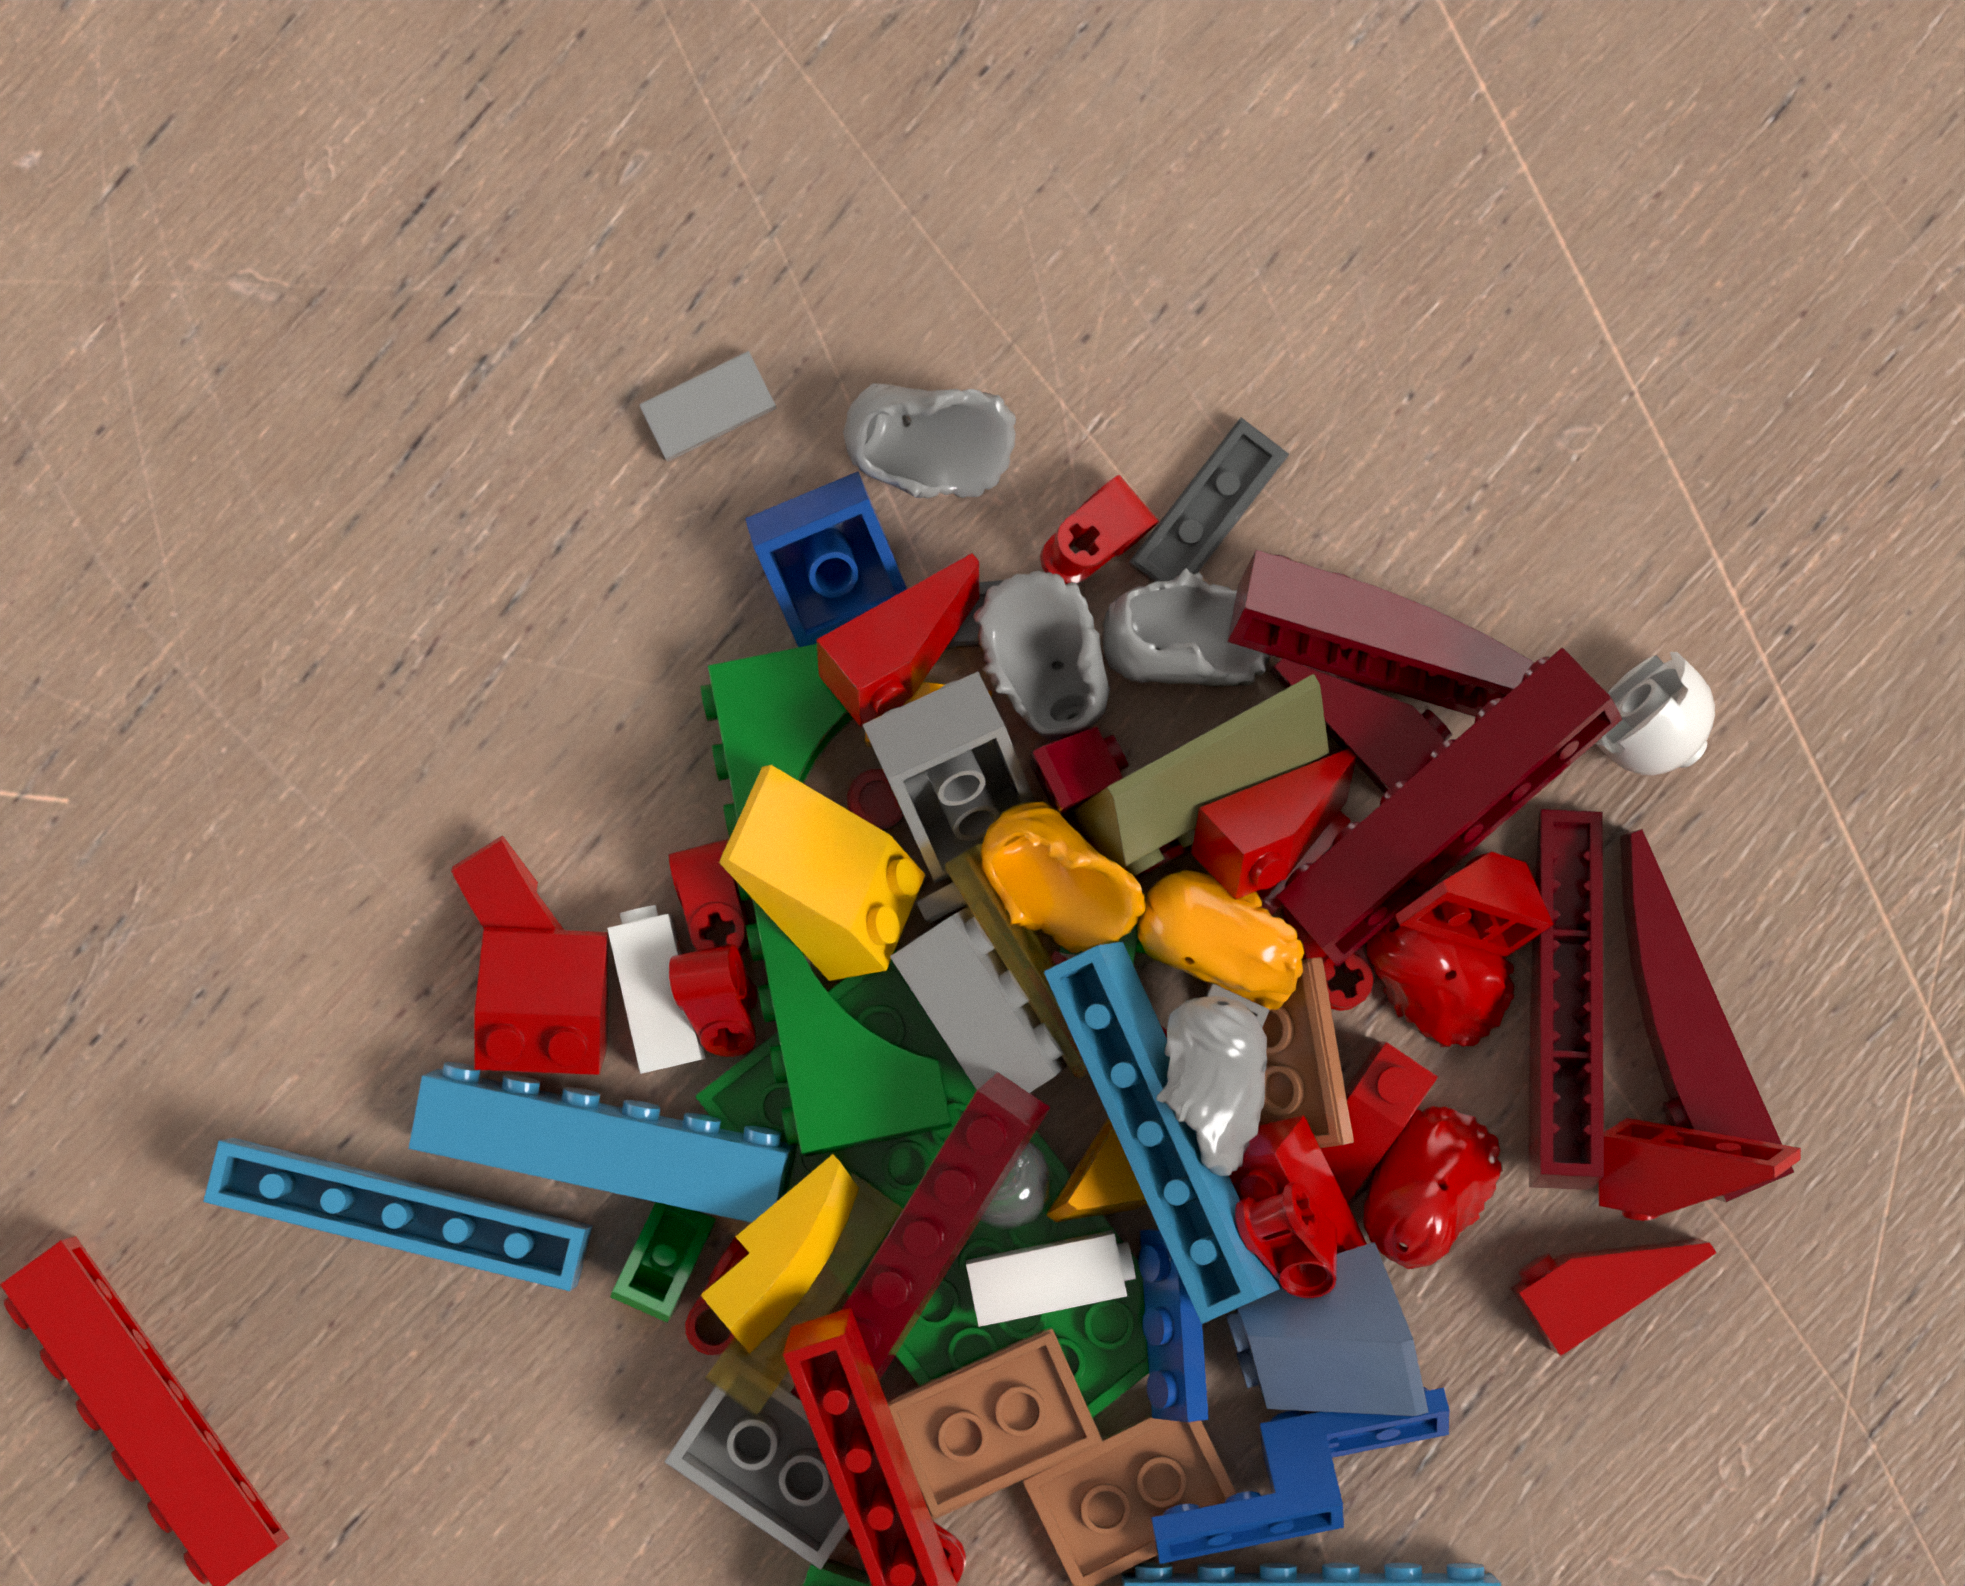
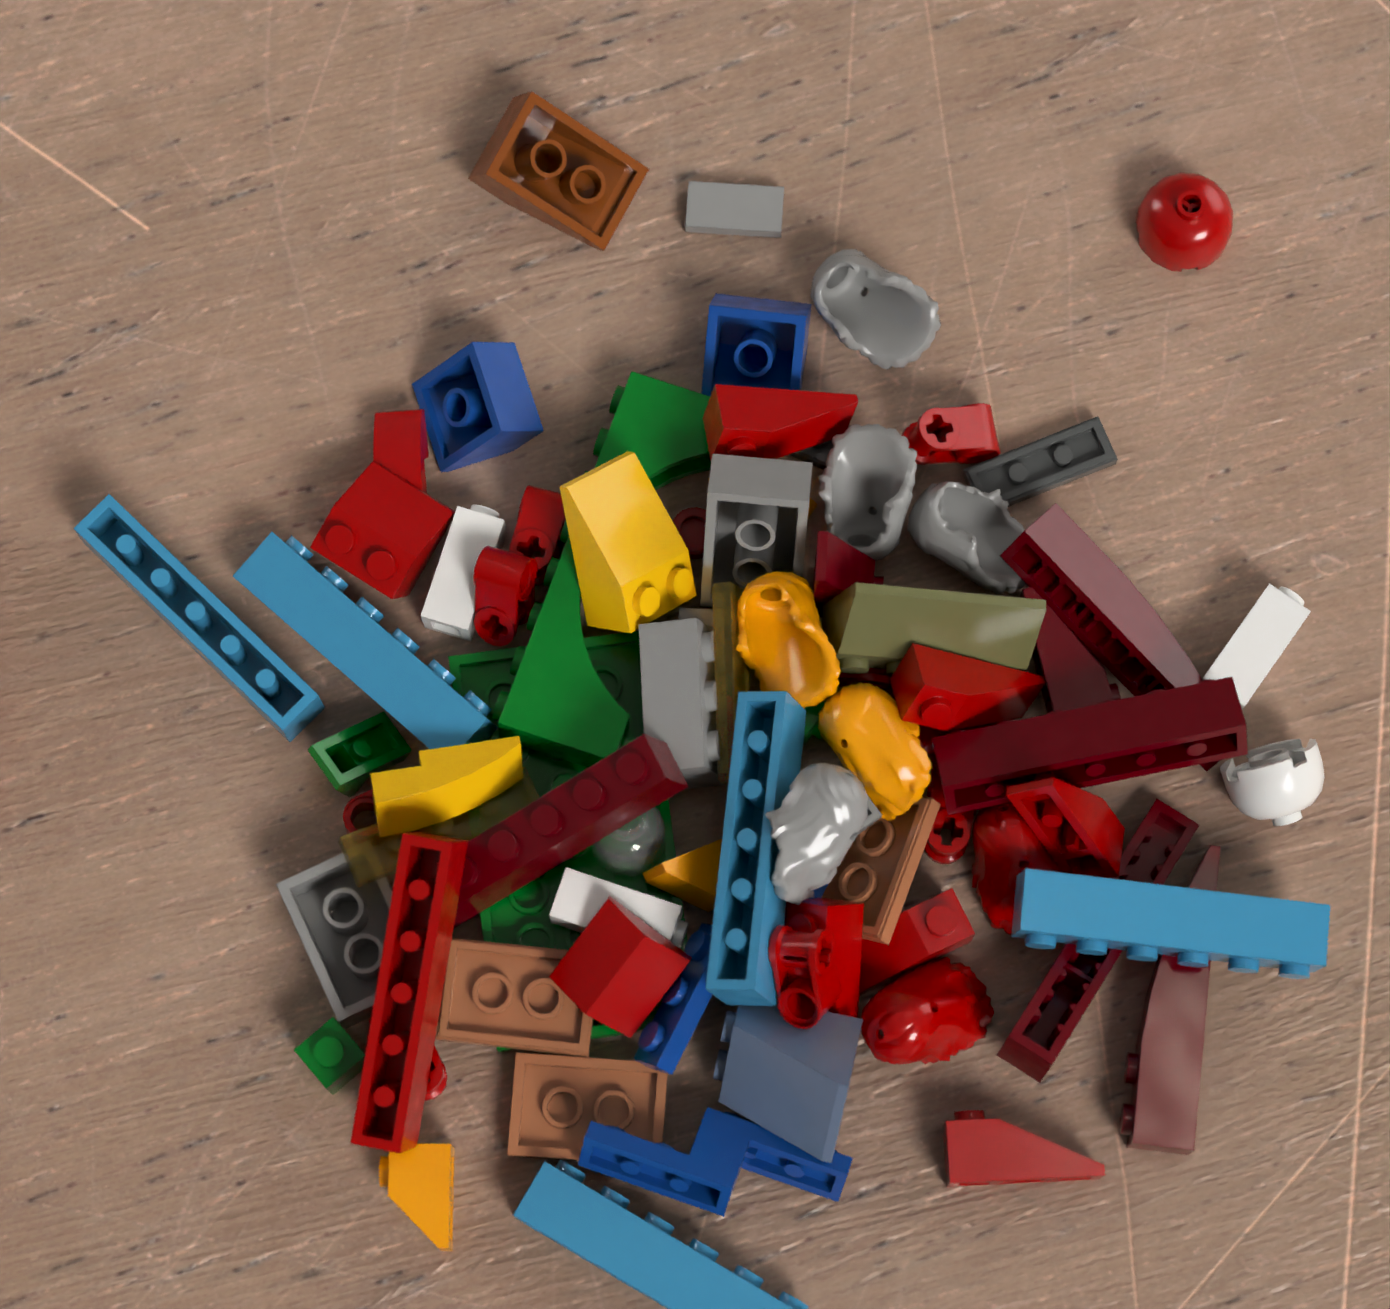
camera: 35 degrees right, 10 degrees down
(488, 477) = (558, 171): none -> dark orange slope
(558, 796) = (477, 405): none -> blue slope
(1085, 1340) = (619, 968): none -> red slope
(1206, 164) = (1184, 222): none -> red cylinder
(1554, 580) = (1260, 640): none -> white brick
(1639, 949) = (1170, 922): none -> dark azure brick
(1669, 1167) = (1102, 1093): red slope -> none

